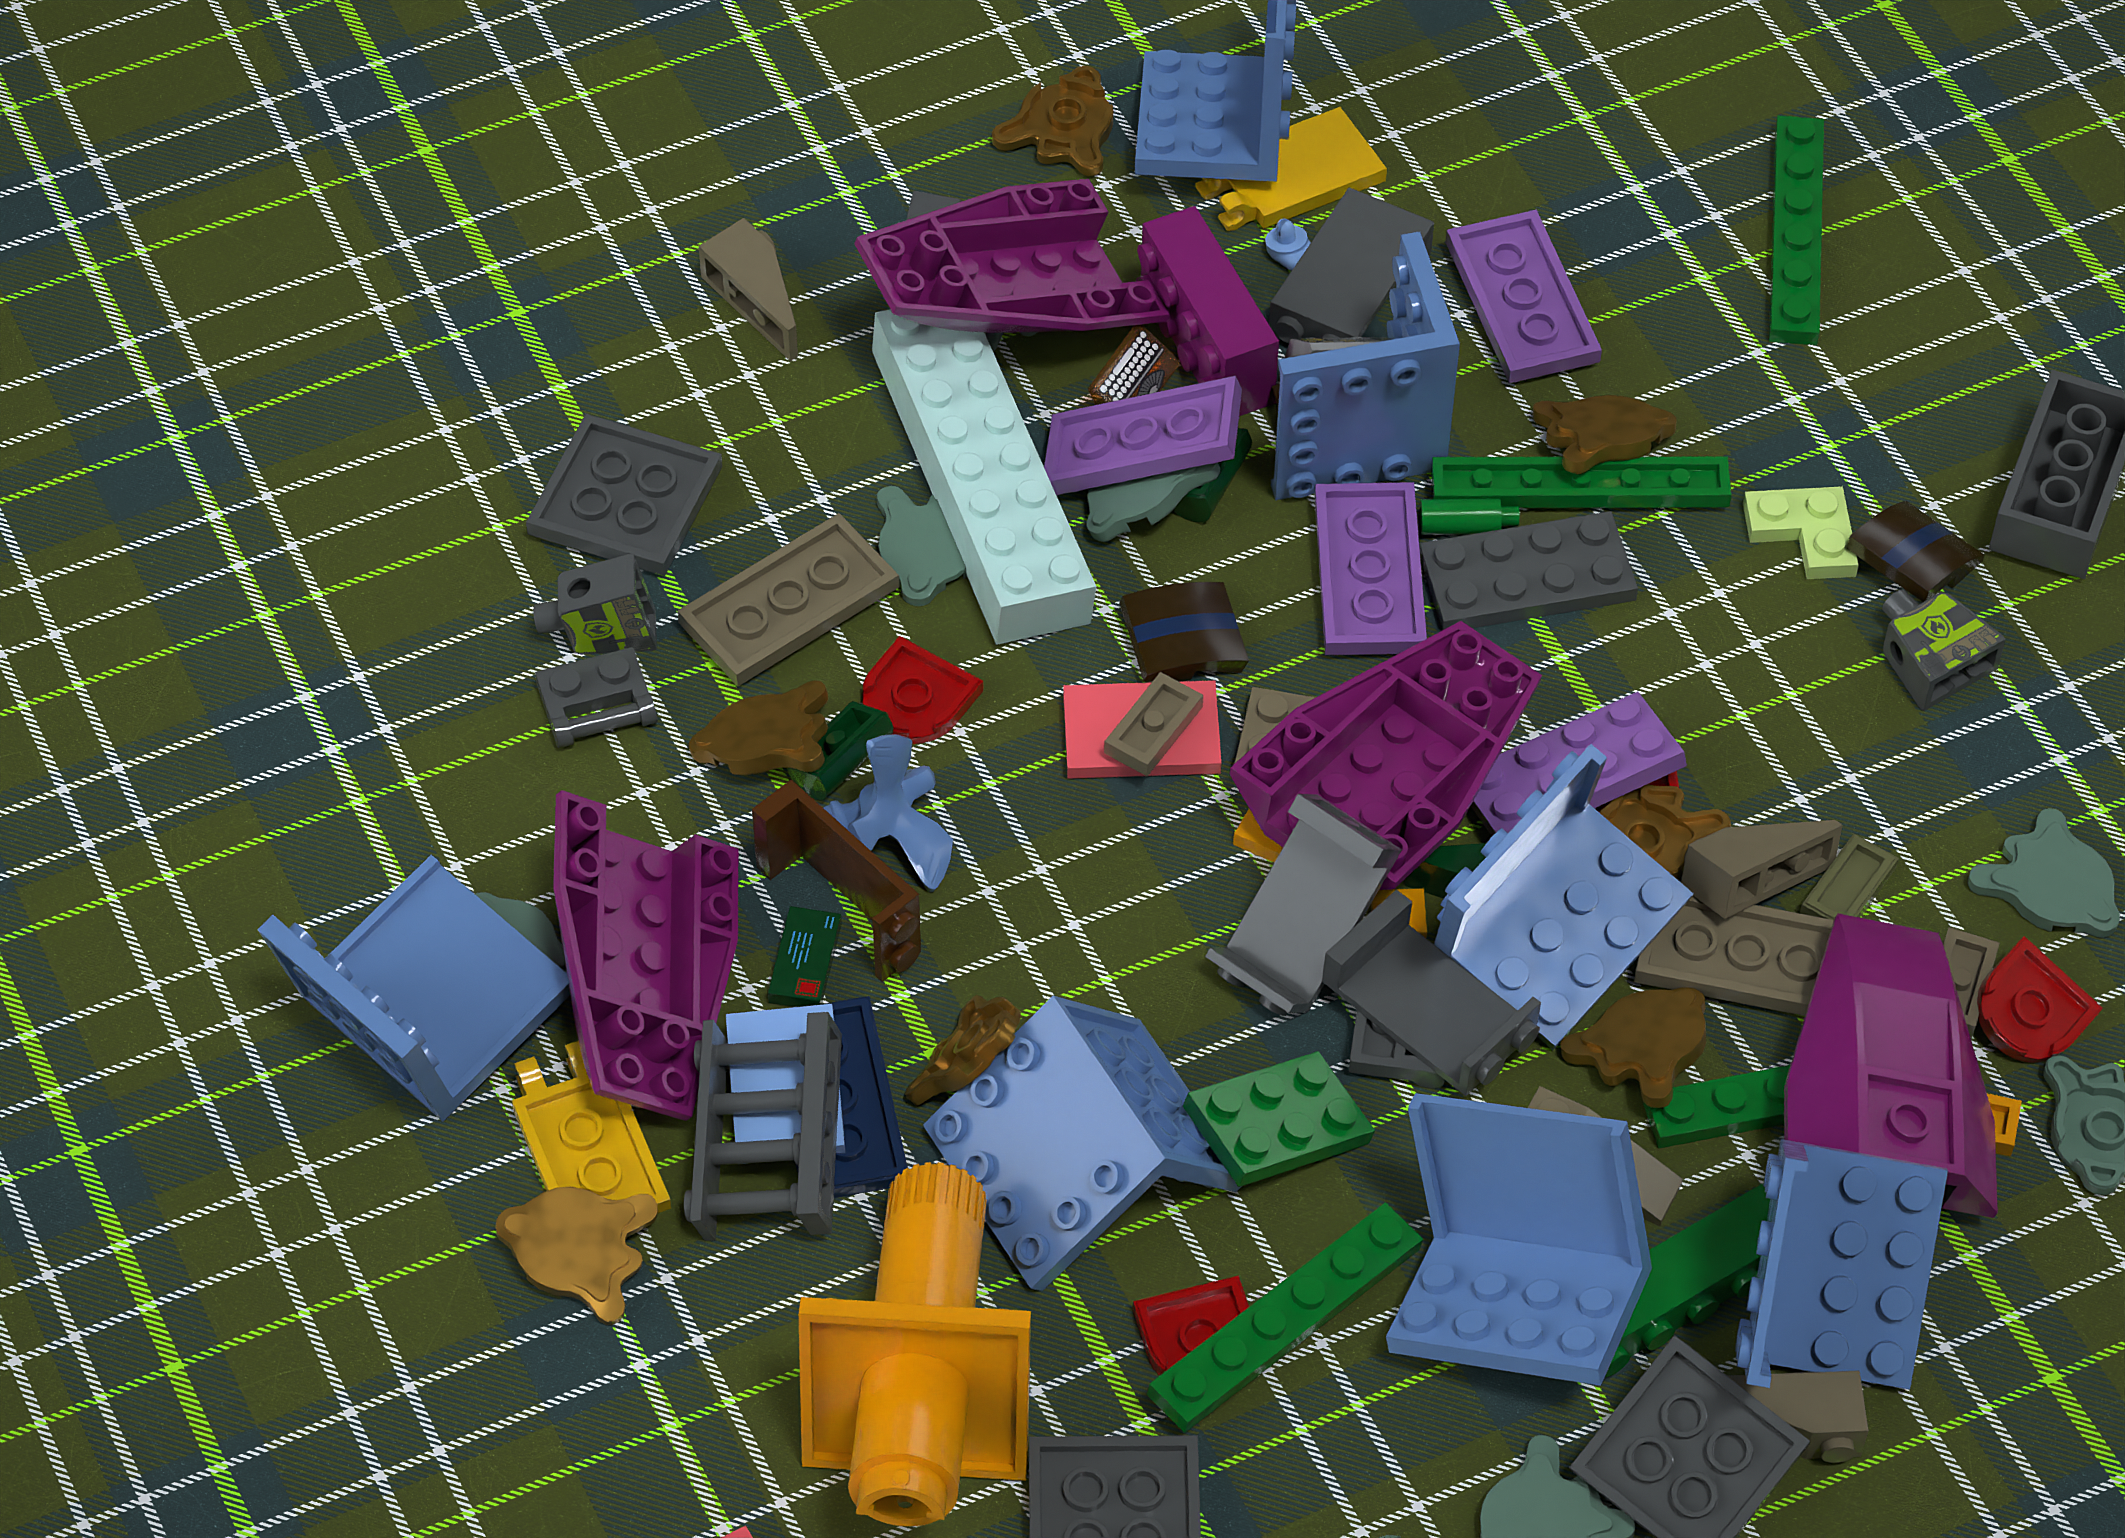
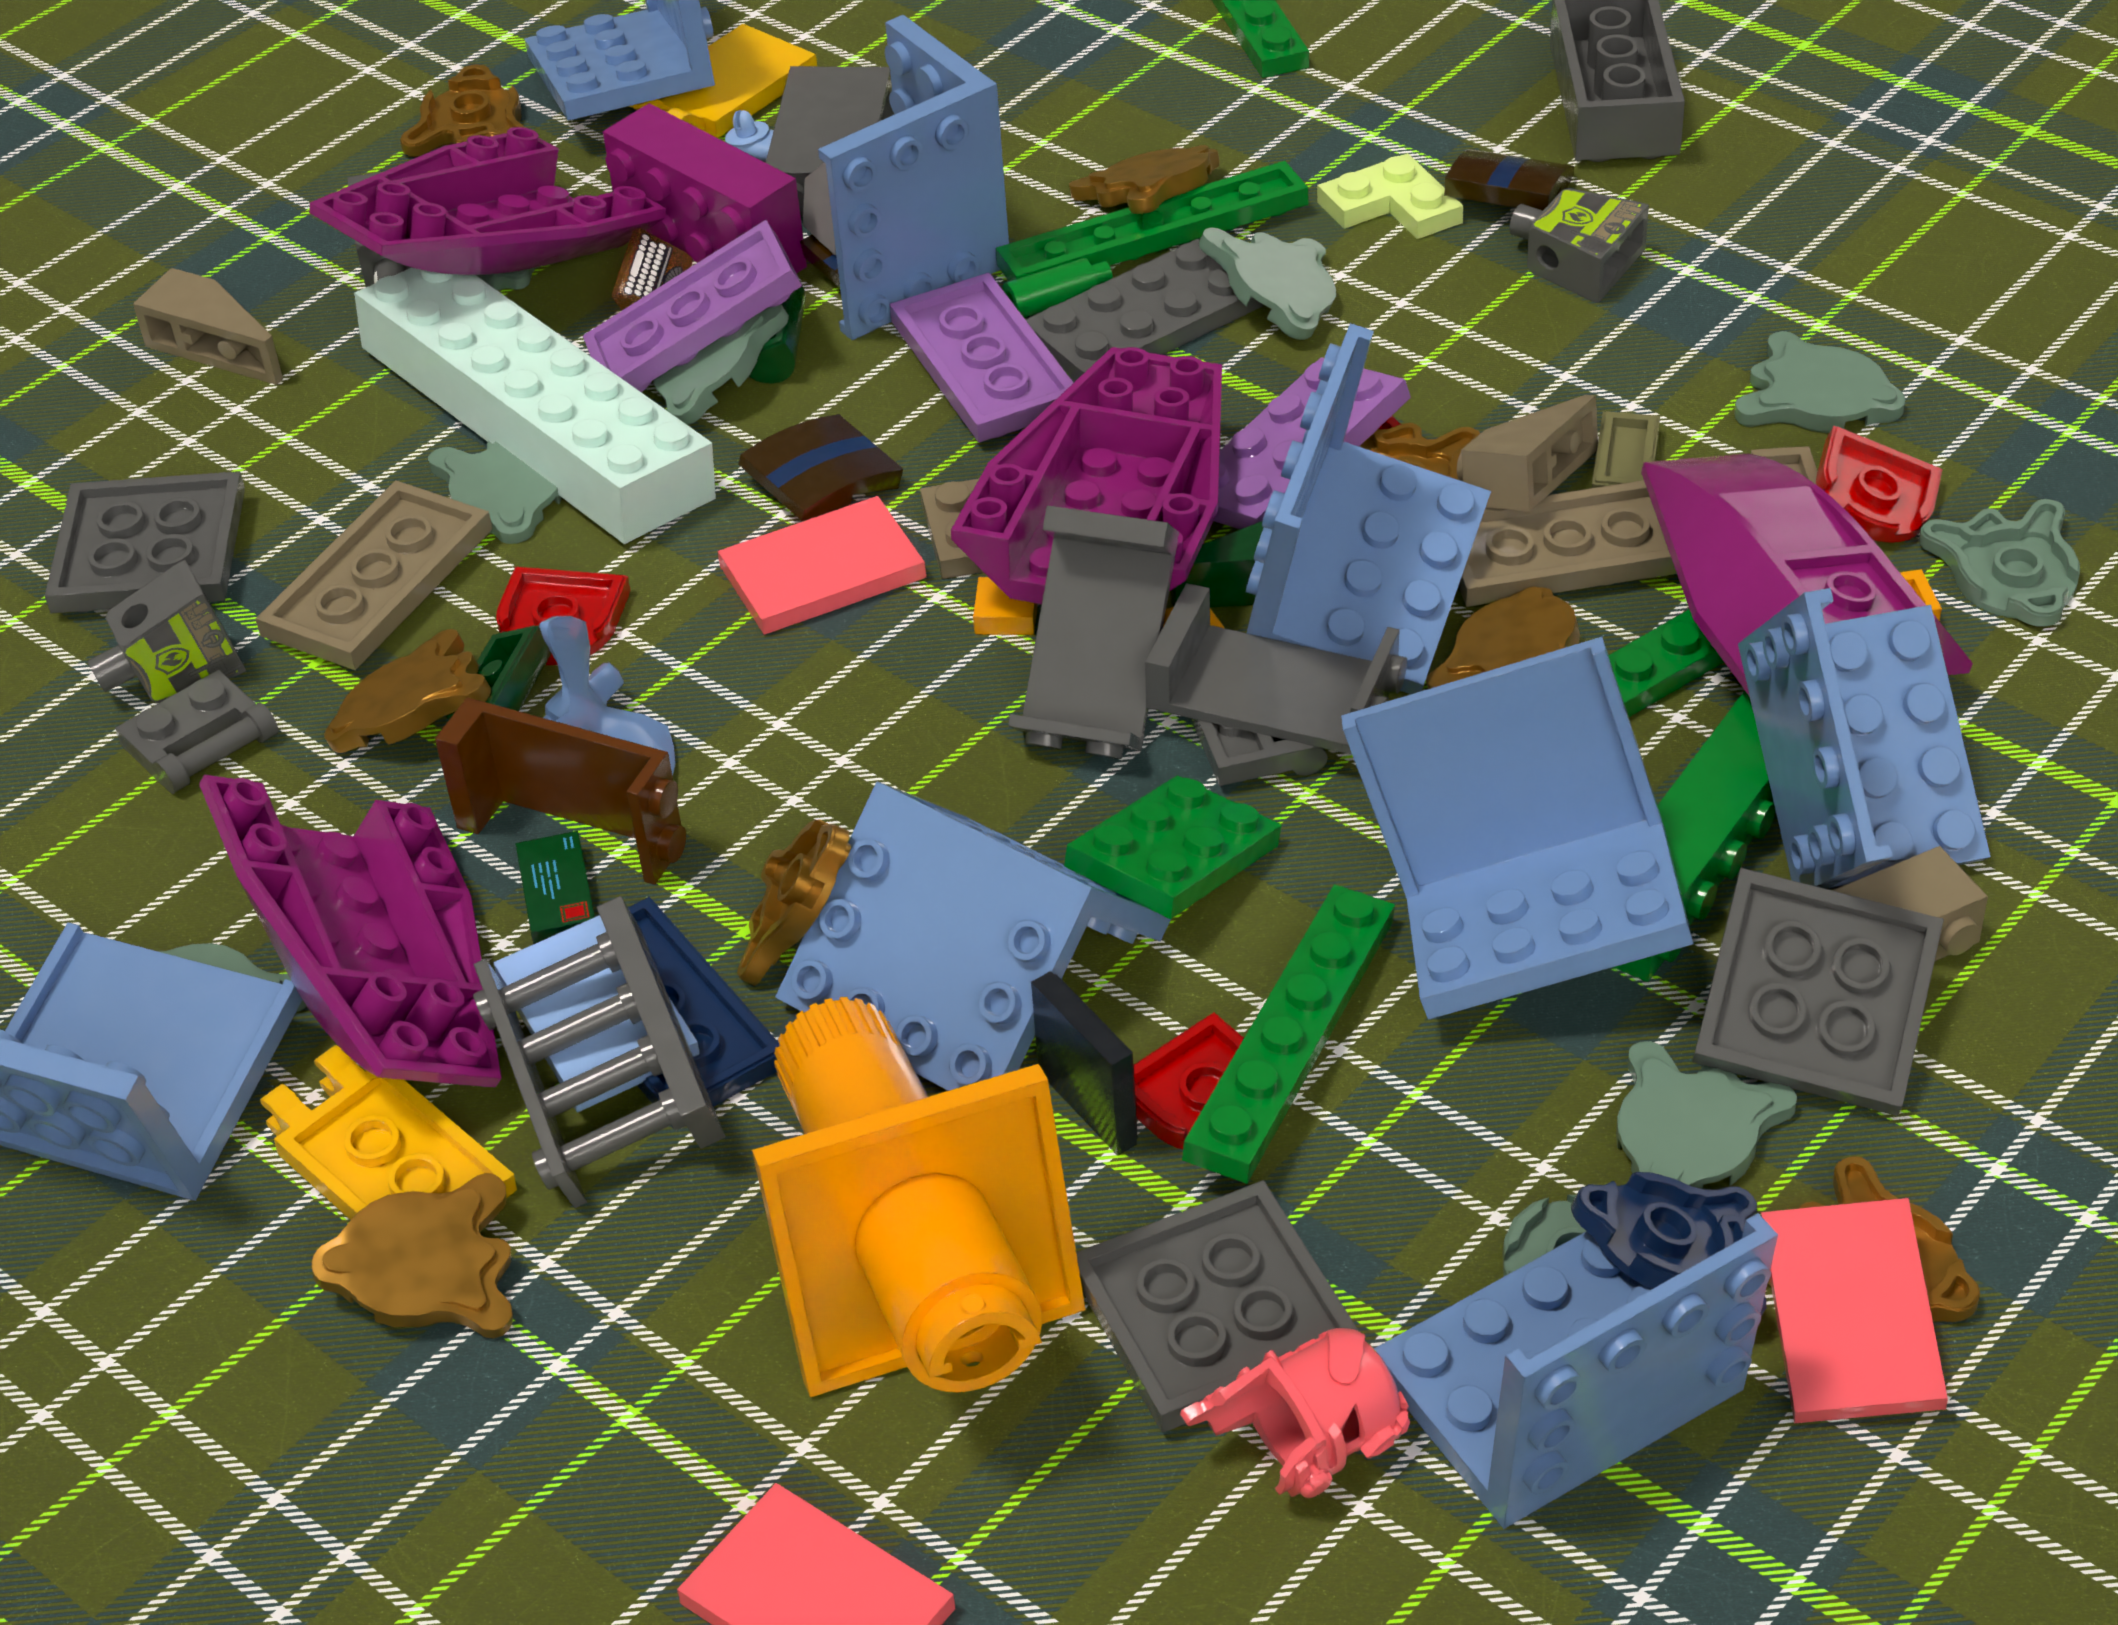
camera: 20 degrees left, 10 degrees down
(1111, 1286) = (1085, 1062): none -> black tile
(1153, 724) = (836, 545): dark tan plate -> none
(1523, 296) = (1037, 118): medium lavender plate -> none
(1654, 583) = (1277, 275): none -> tile

